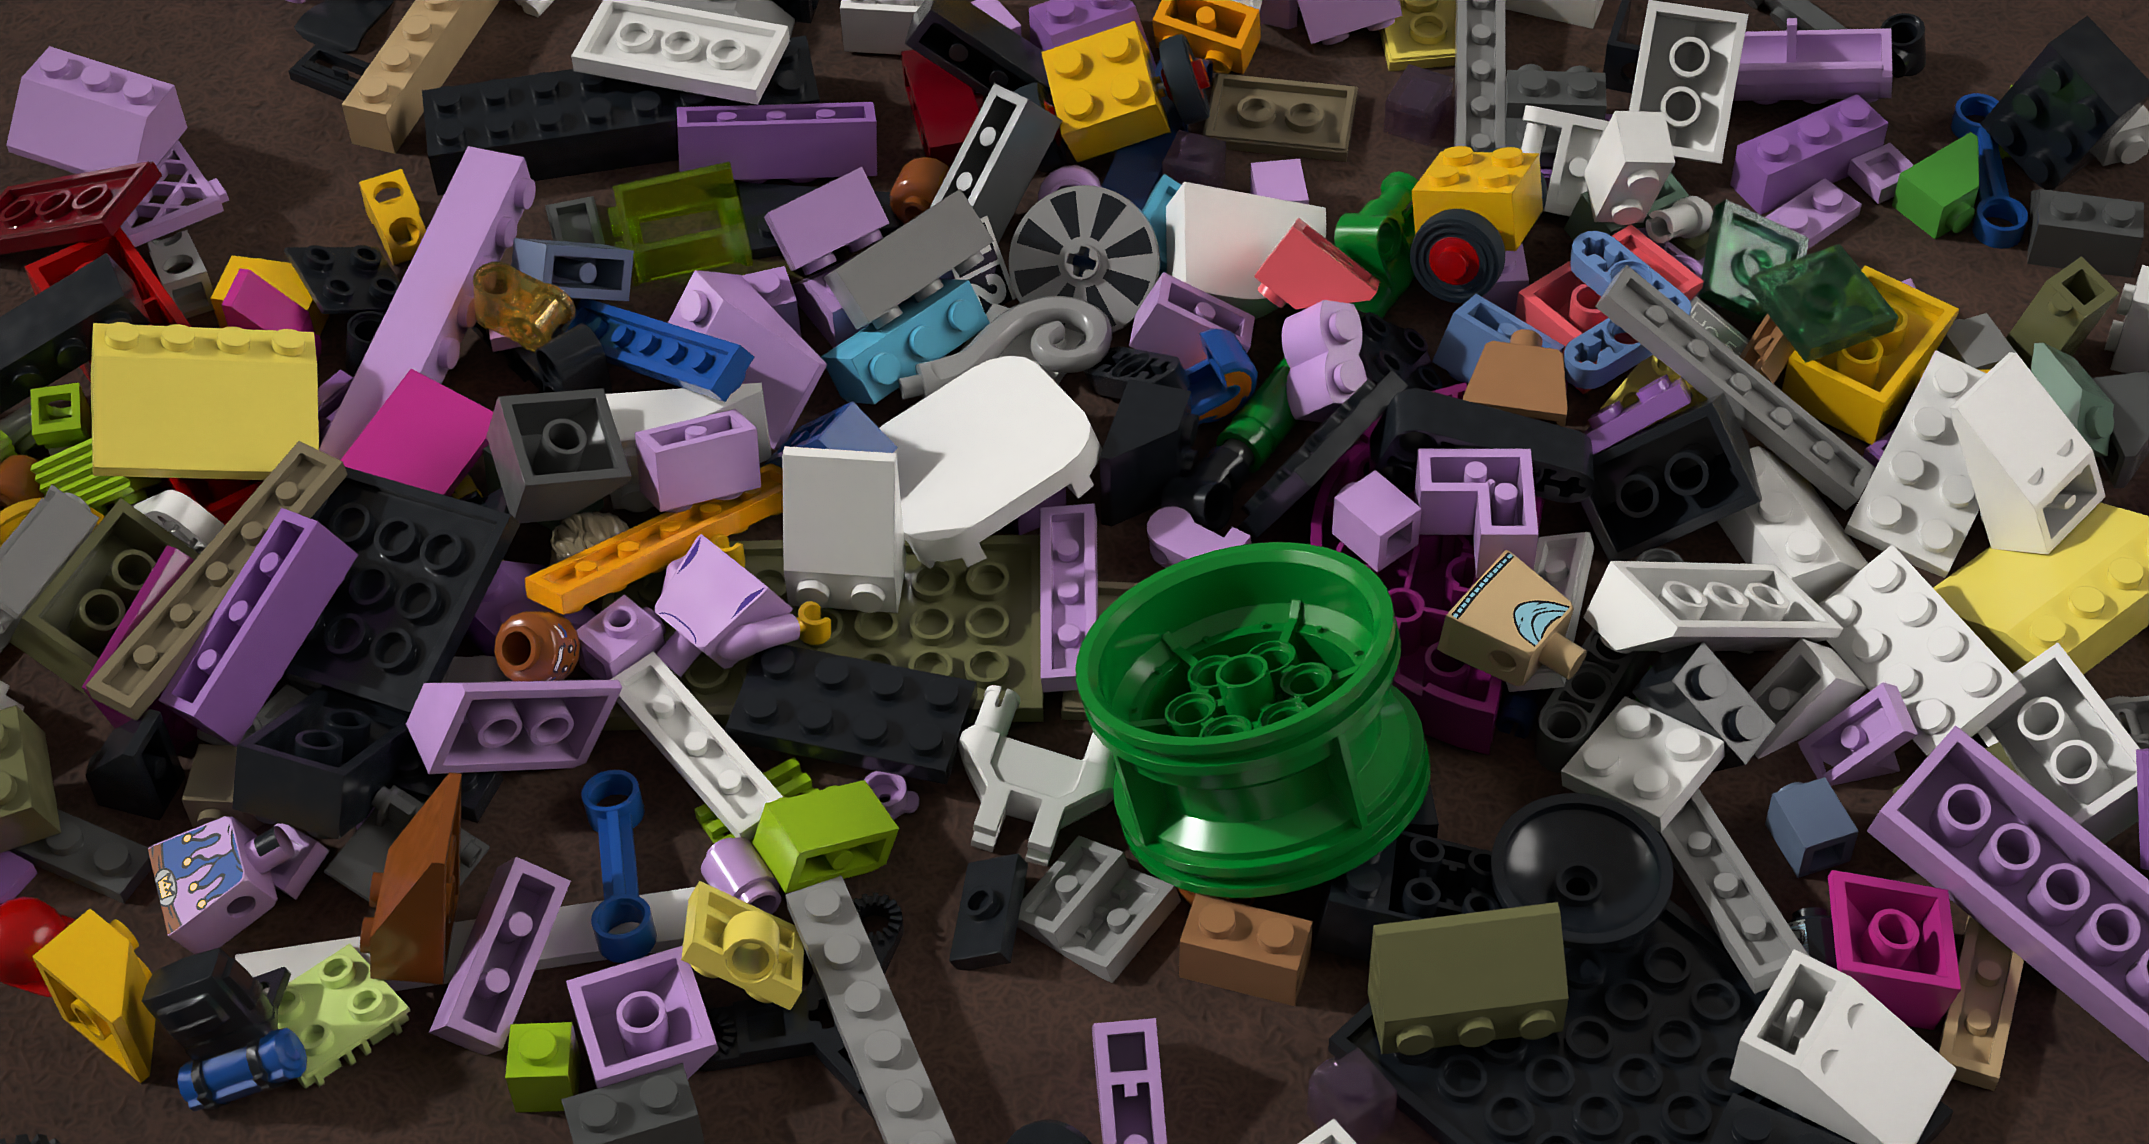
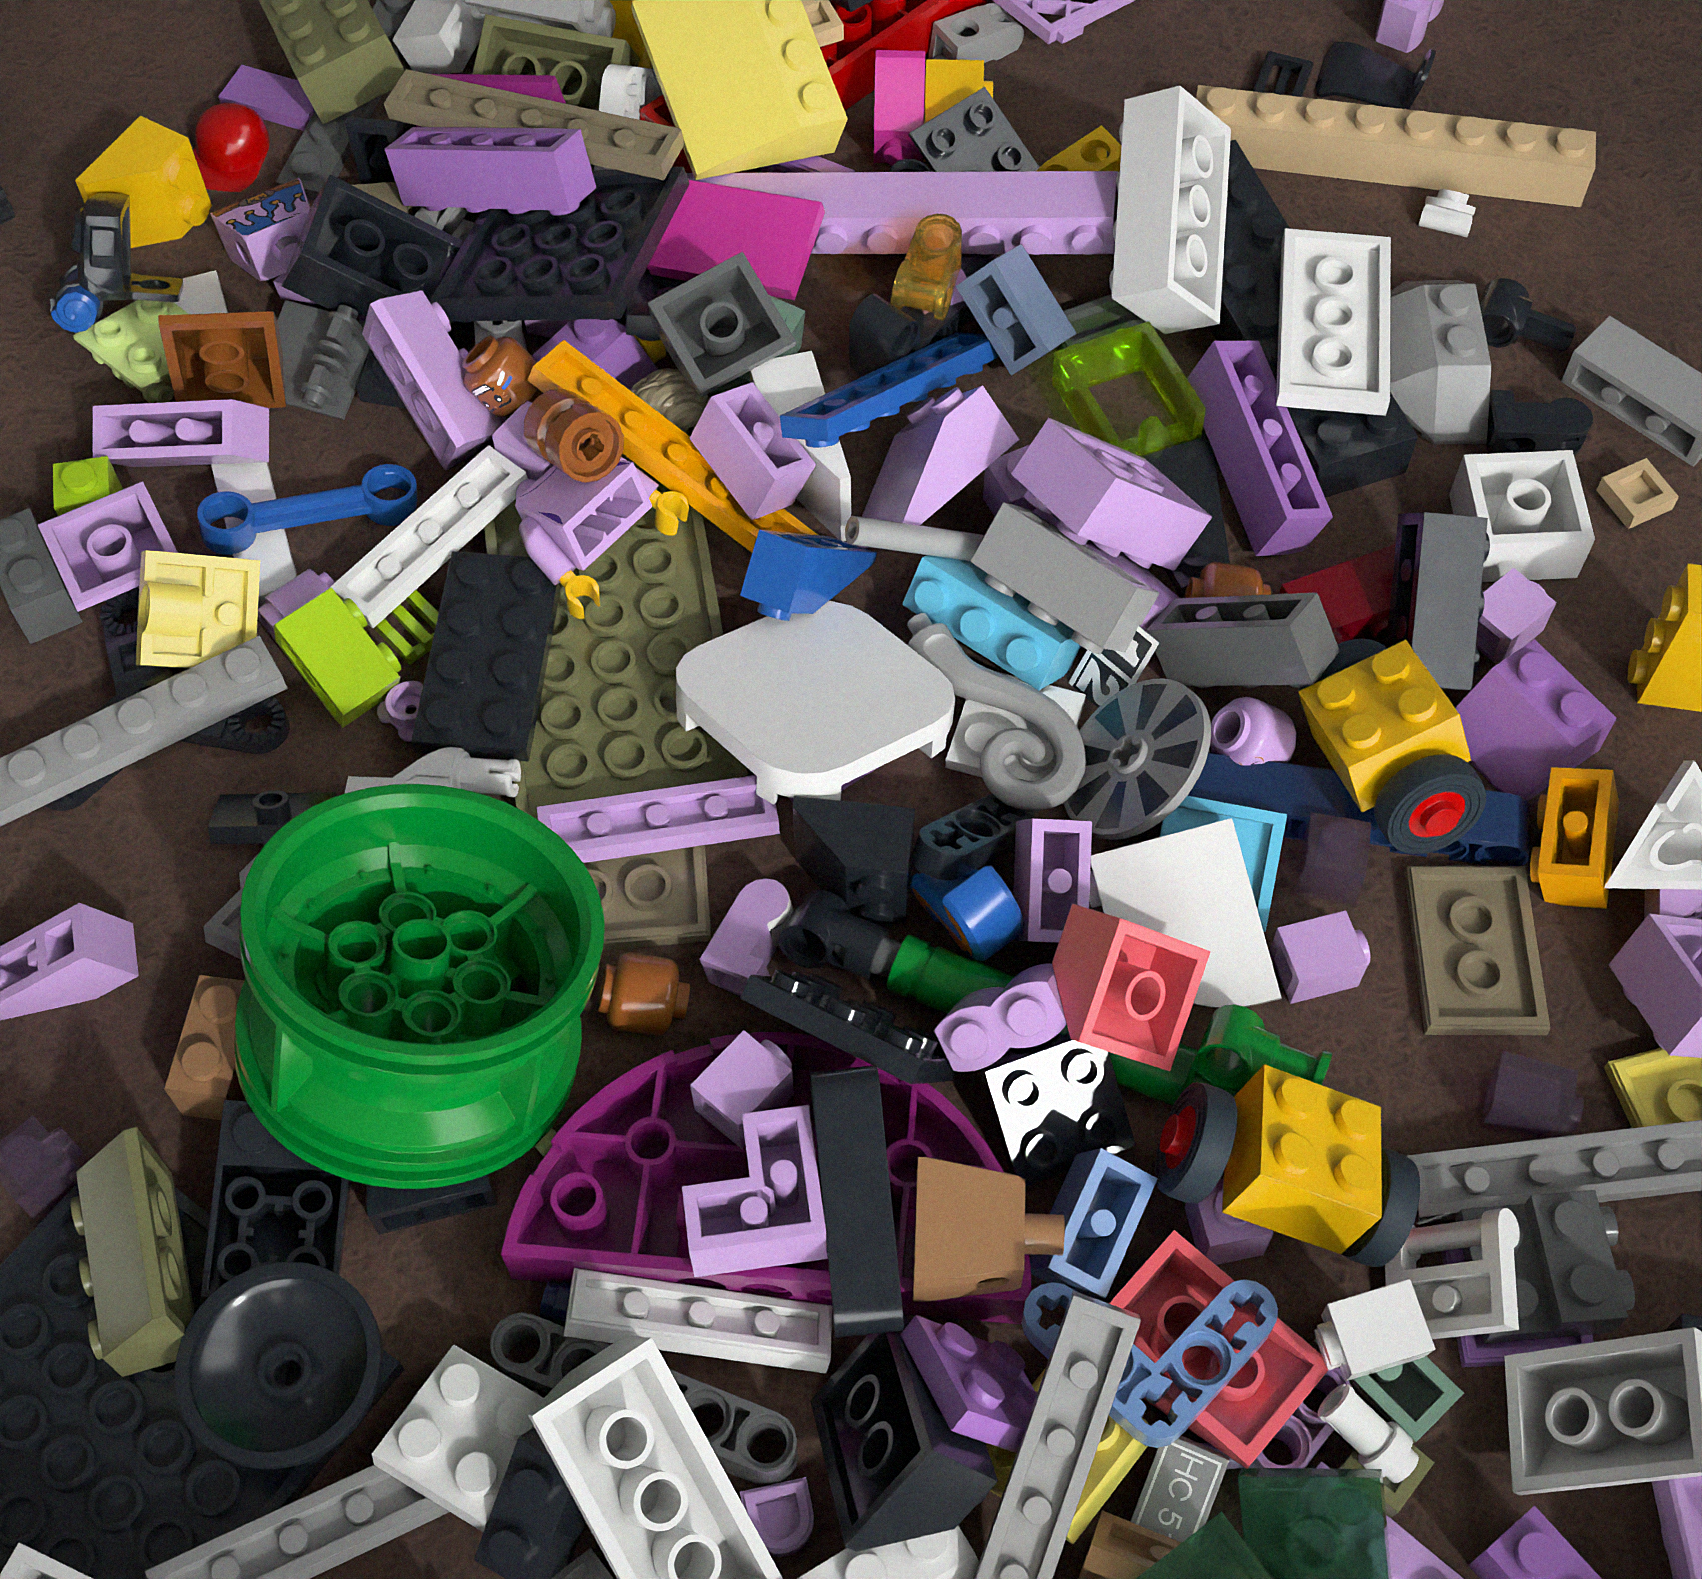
camera: 80 degrees right, 10 degrees up
(527, 120) = (1171, 211): none -> white brick
(662, 567) = (573, 435): none -> dark orange wheel
(836, 352) = (911, 538): none -> light grey piece
(842, 529) = (656, 588): white slope -> none
(1512, 625) = (602, 1254): tan torso -> none

